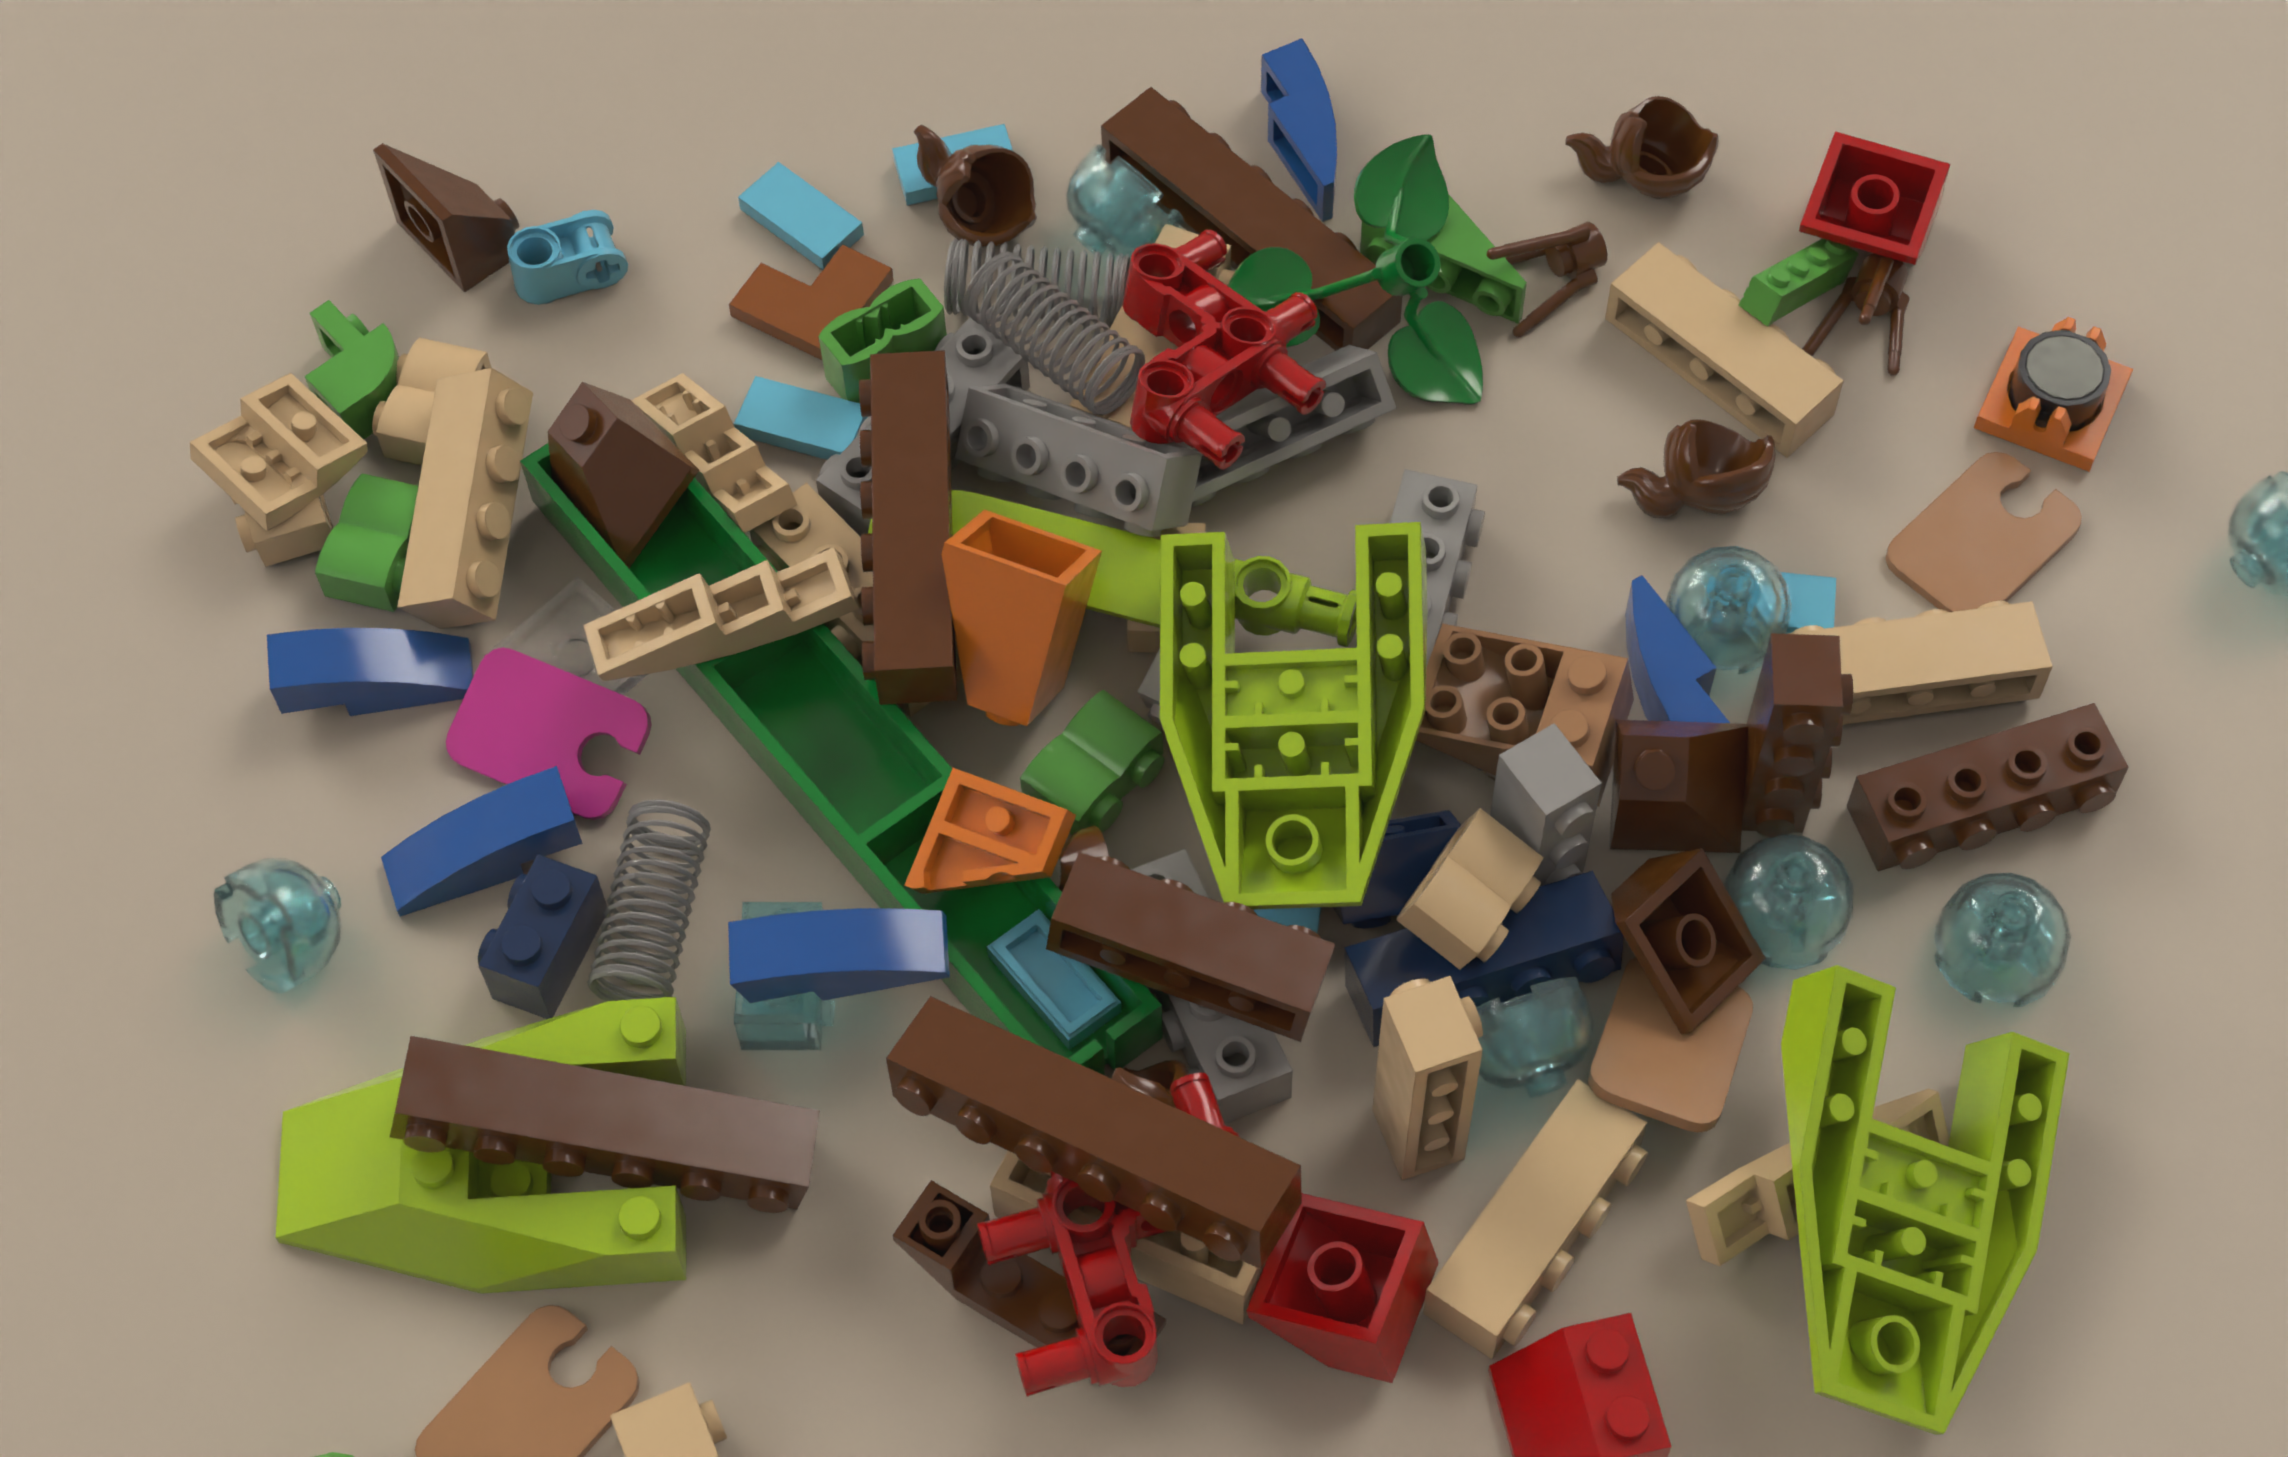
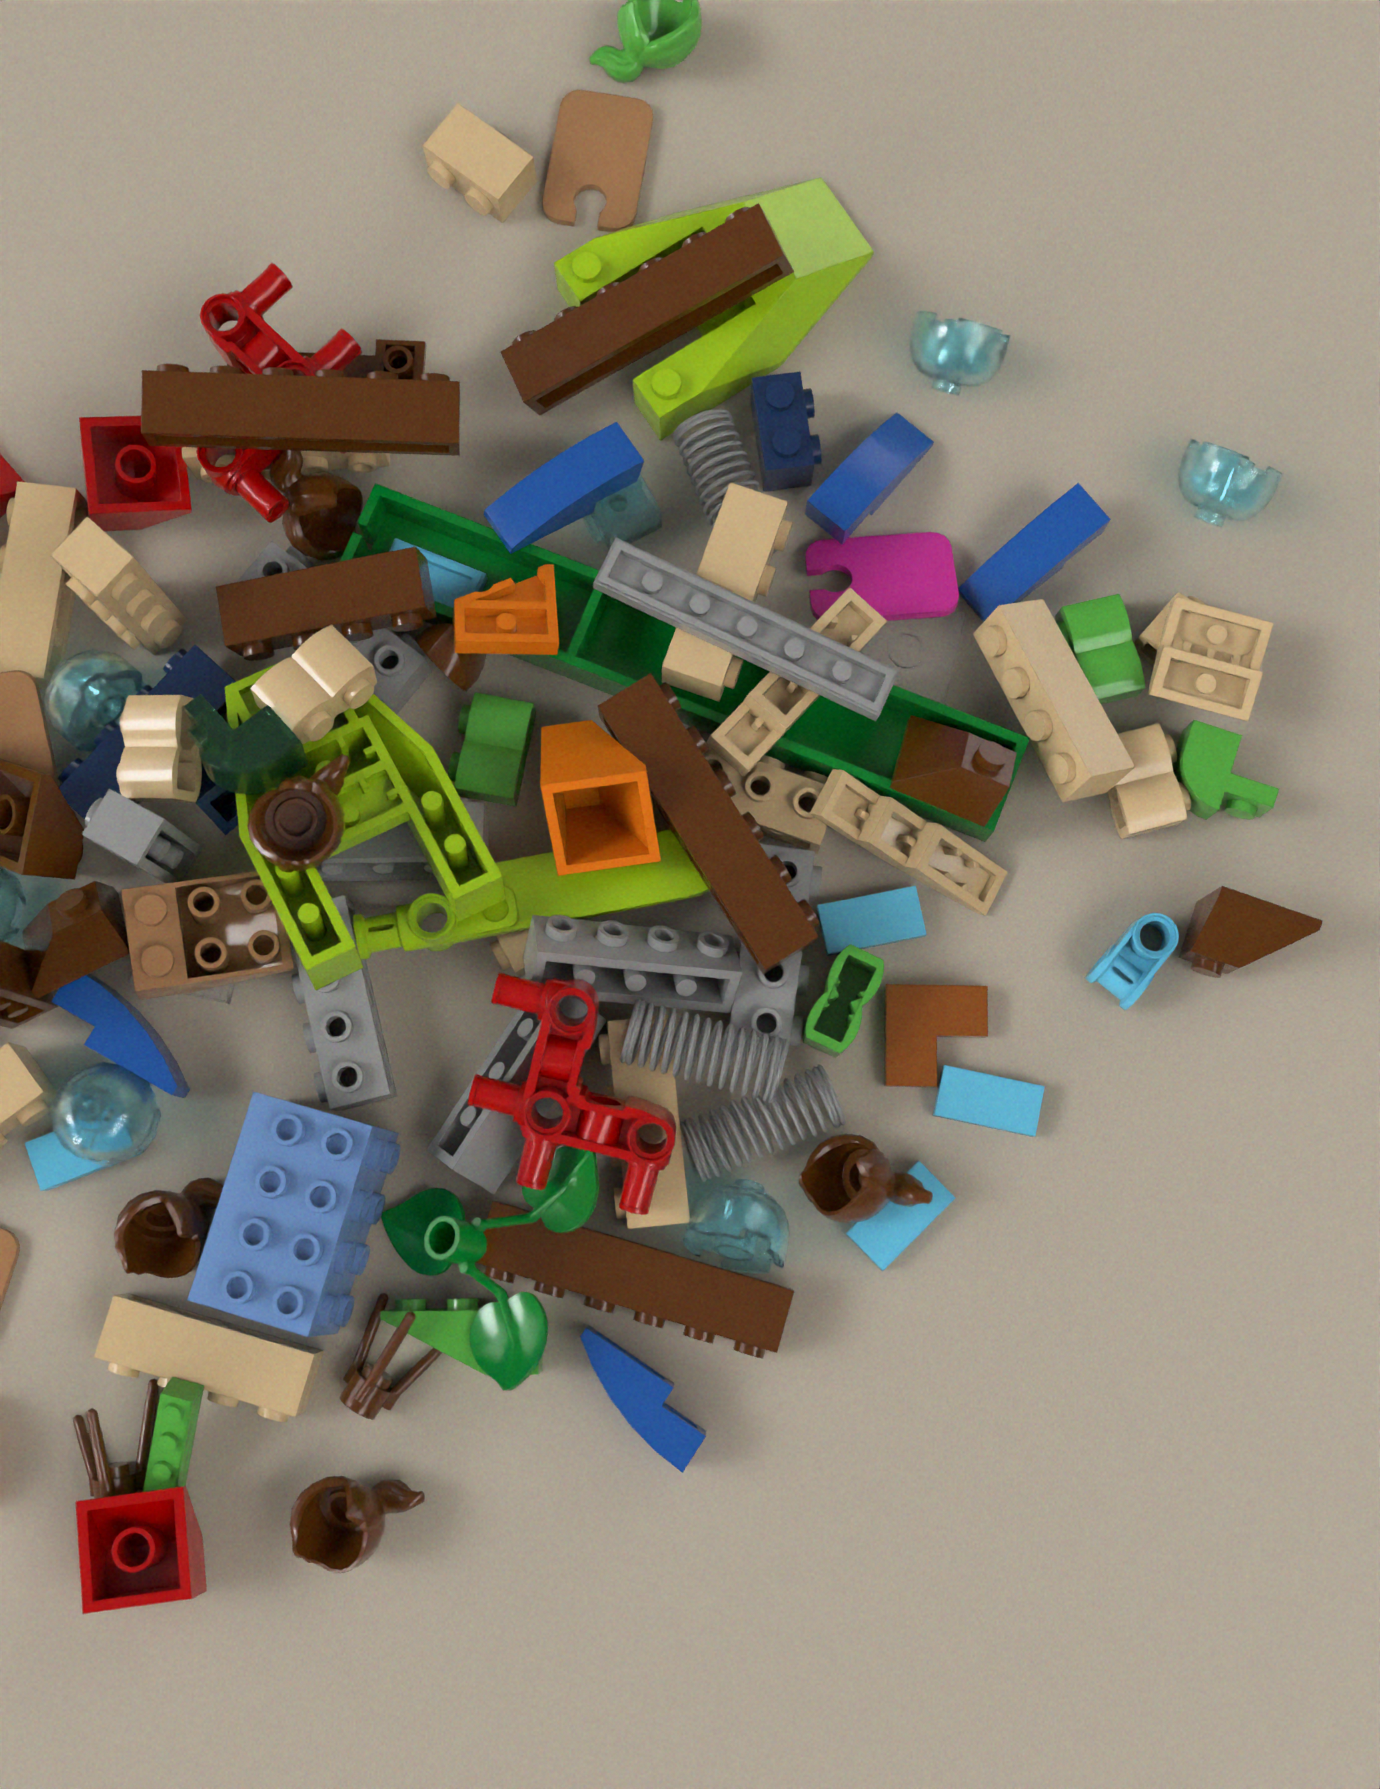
camera: 150 degrees right, 20 degrees up
(111, 630) = (1224, 483): none -> clear light blue cylinder
(734, 736) = (736, 560): none -> tan brick
(746, 659) = (745, 629): none -> light grey tile
(1253, 826) = (316, 684): none -> tan brick
(1341, 656) = (301, 819): none -> reddish brown hair
(1365, 770) = (249, 757): none -> clear green brick
(1563, 400) = (295, 1217): none -> medium blue brick

